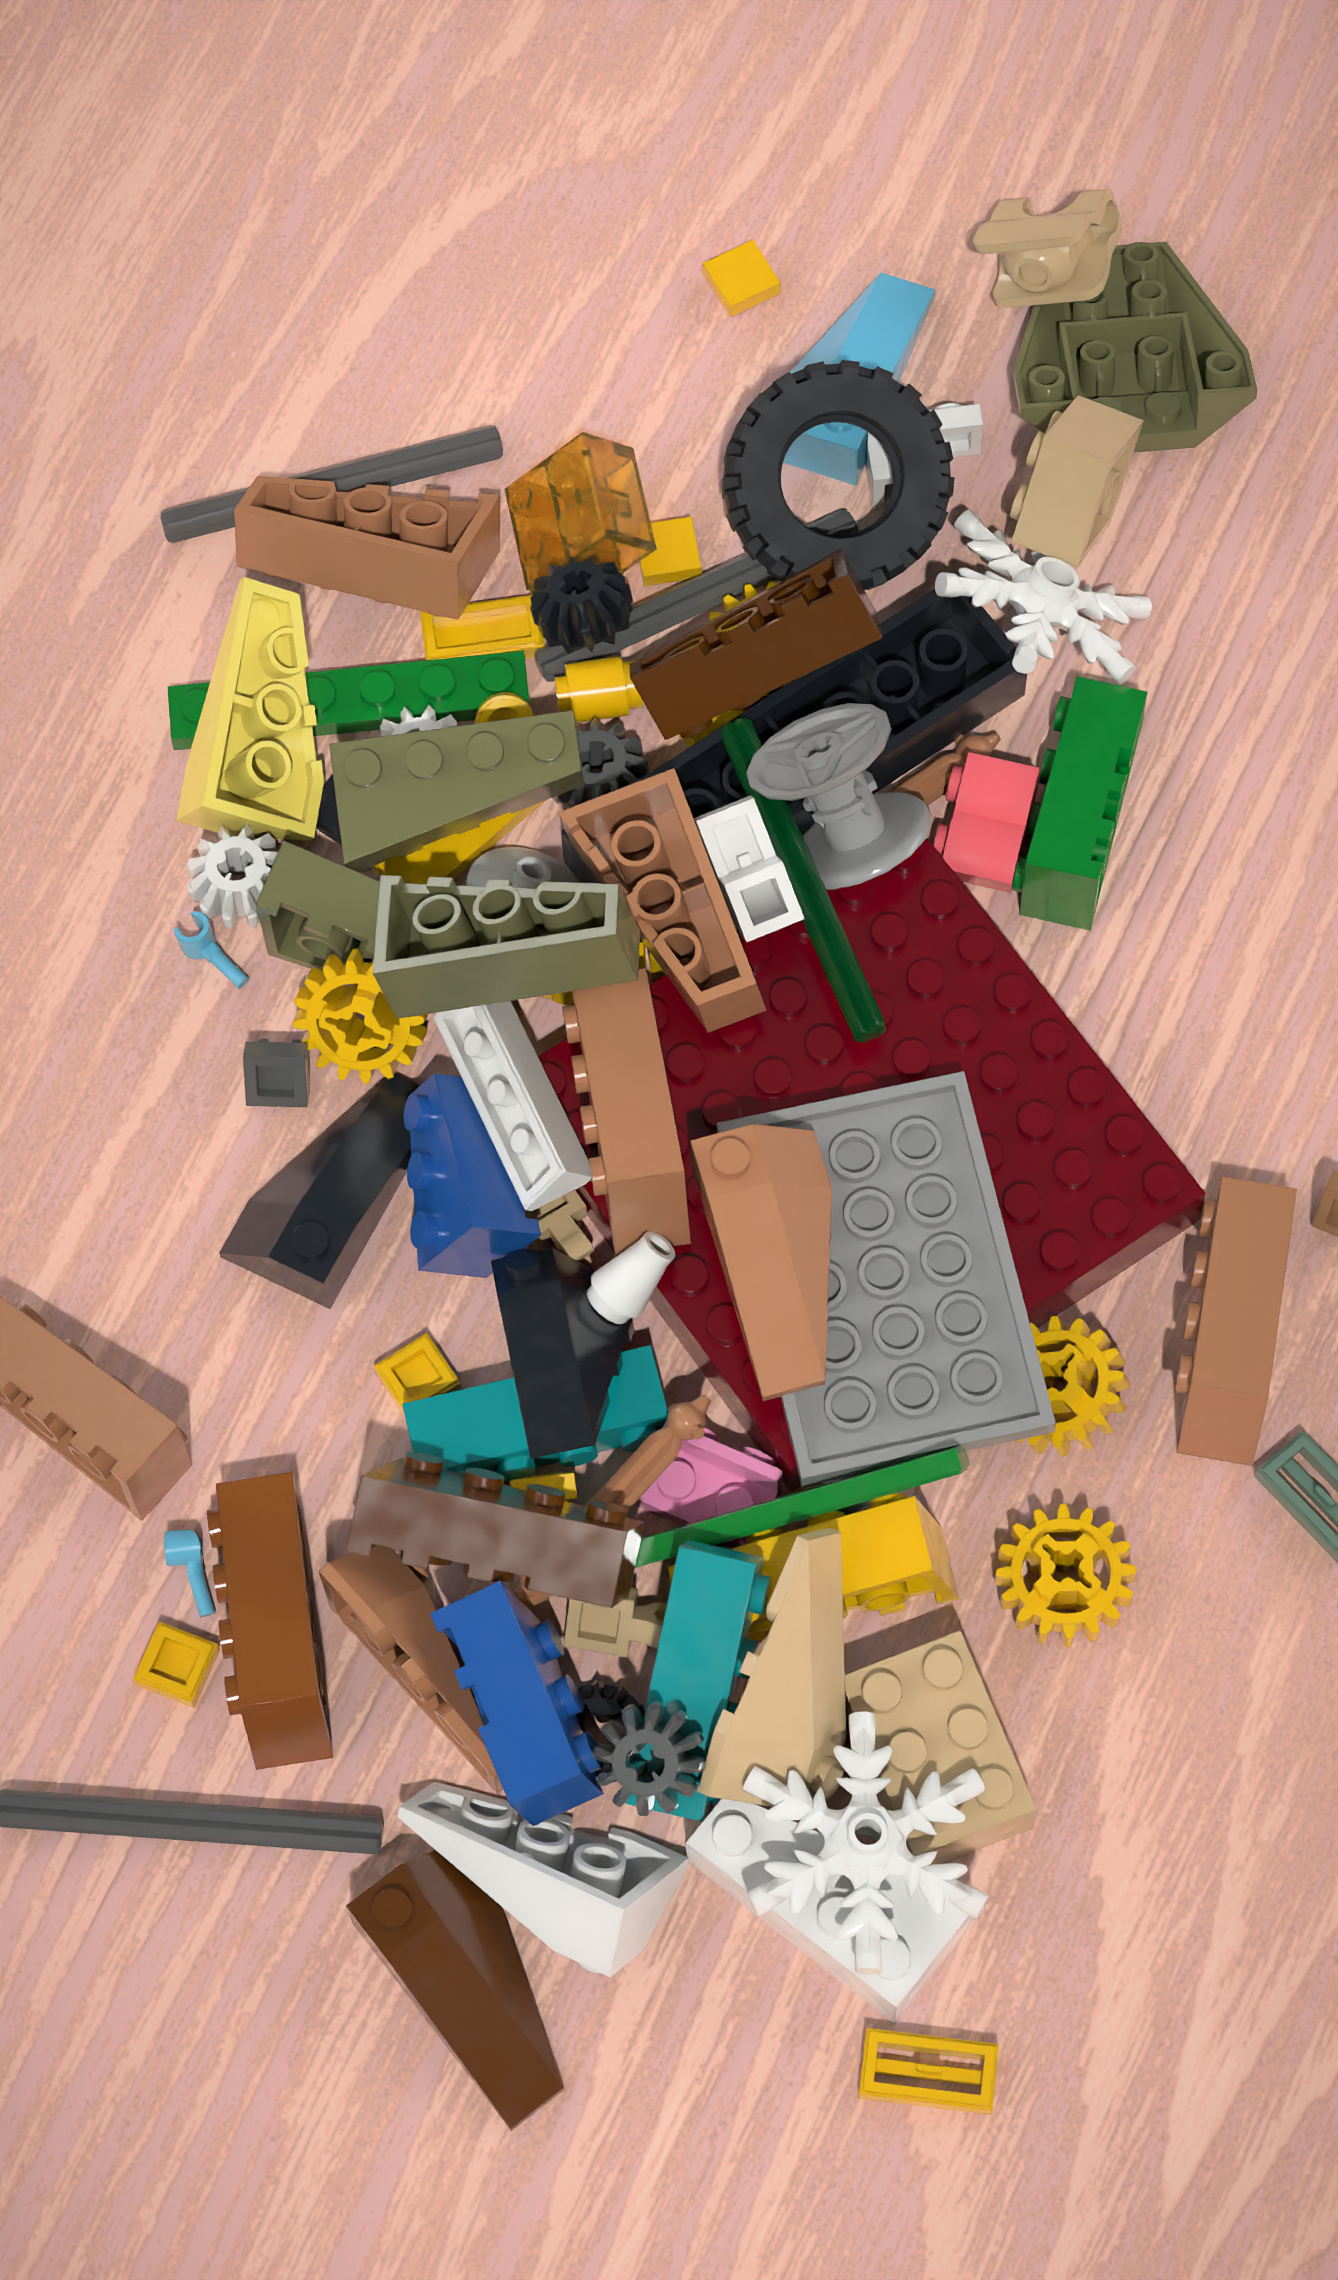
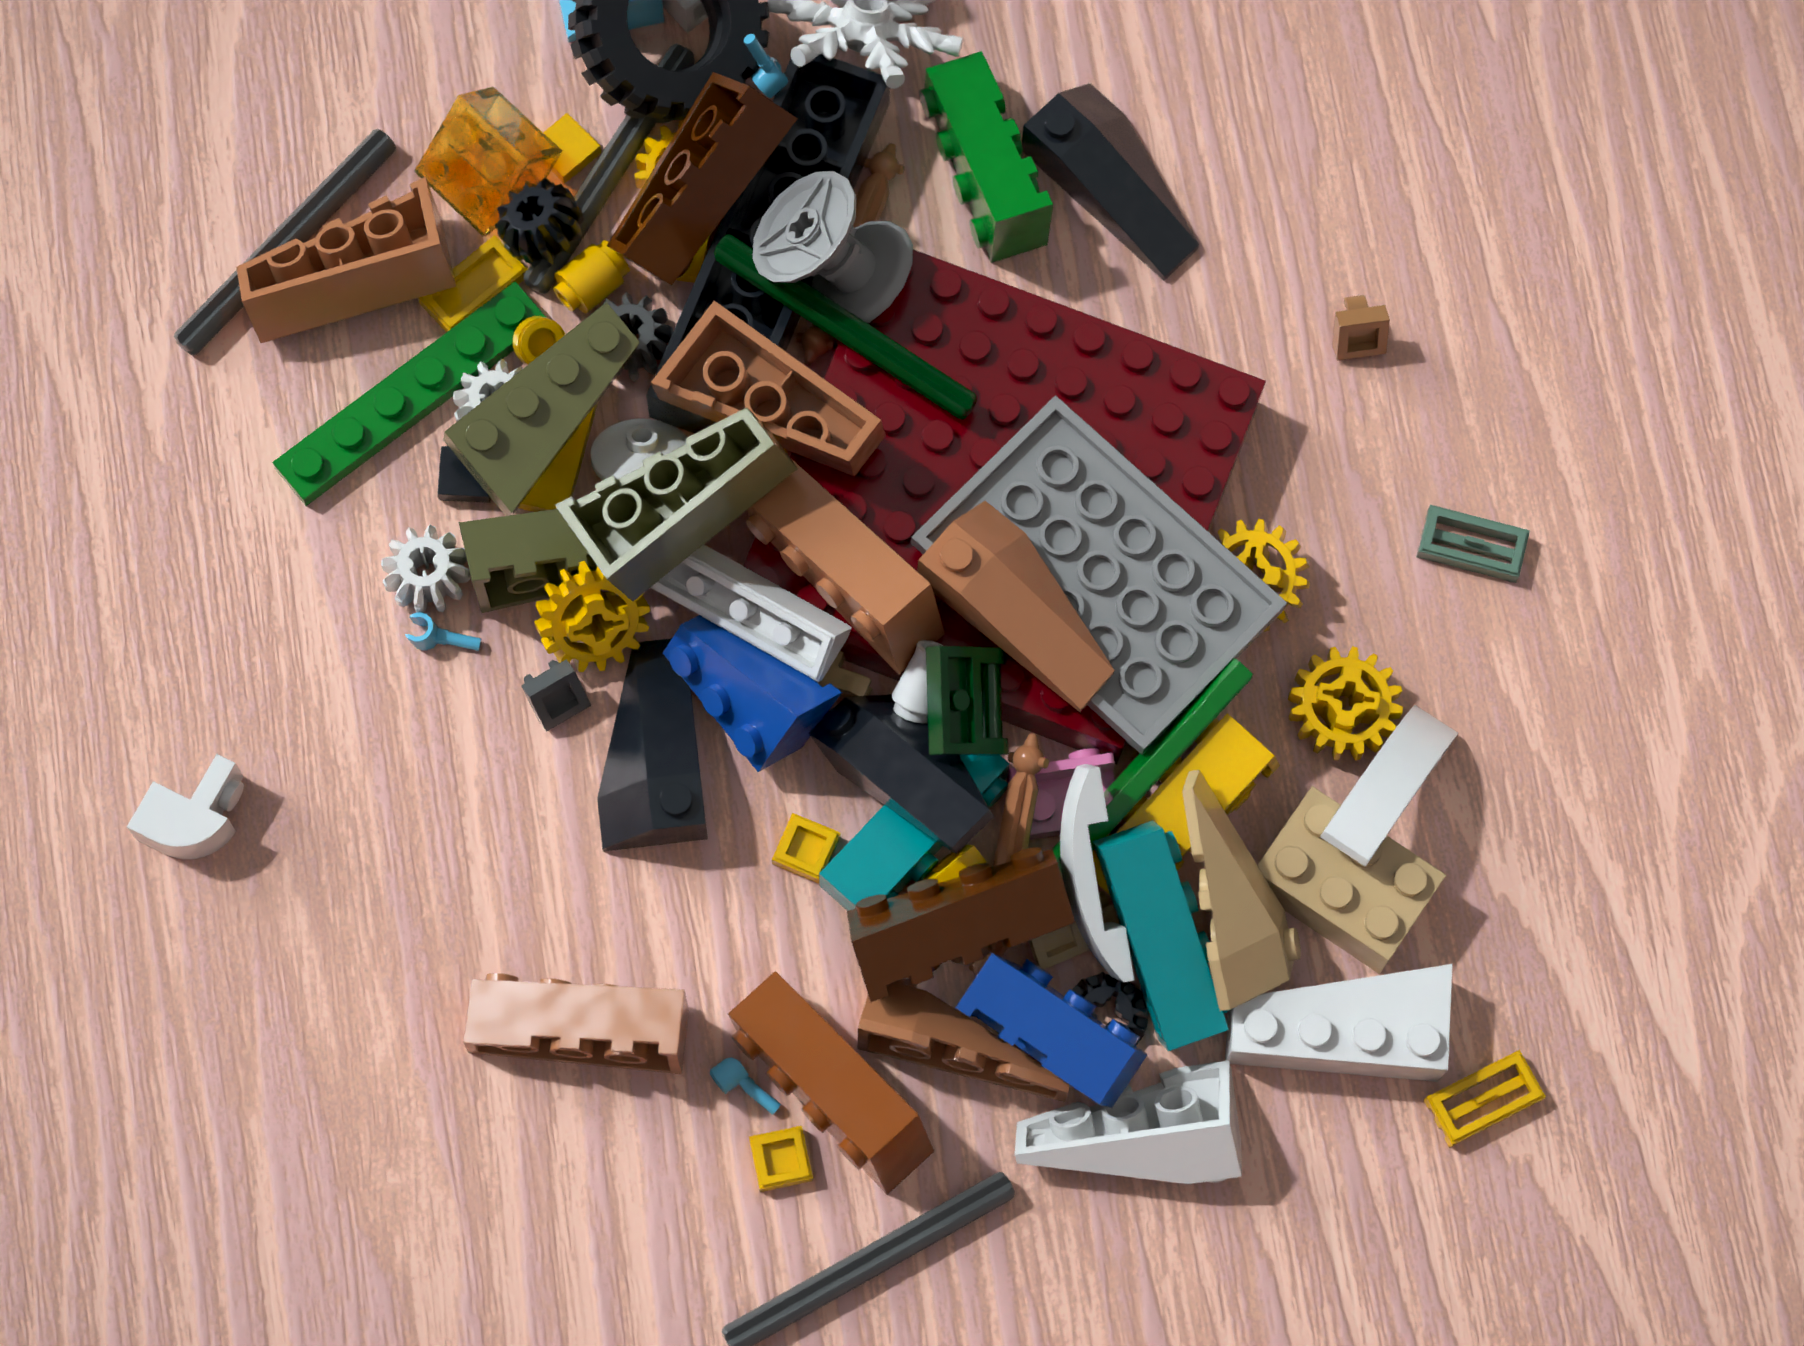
camera: 40 degrees left, 5 degrees up
(255, 730) = (367, 459): light yellow wedge -> none
(464, 1976) = (1131, 1241): reddish brown wedge -> none
(632, 1771) = (1158, 1025): dark grey gear -> none
(635, 1647) = (1085, 806): none -> white slope
(643, 1311) = (965, 701): none -> dark green plate
(748, 869) = (815, 343): white brick -> none
(861, 1862) = (1353, 987): white piece -> none
(903, 589) = (769, 76): none -> medium azure hand
(987, 820) = (932, 206): coral brick -> none
(1044, 1676) = (1388, 785): none -> white slope
(1204, 886) = (1105, 168): none -> black wedge
(1235, 1320) = (1340, 455): nougat wedge -> none

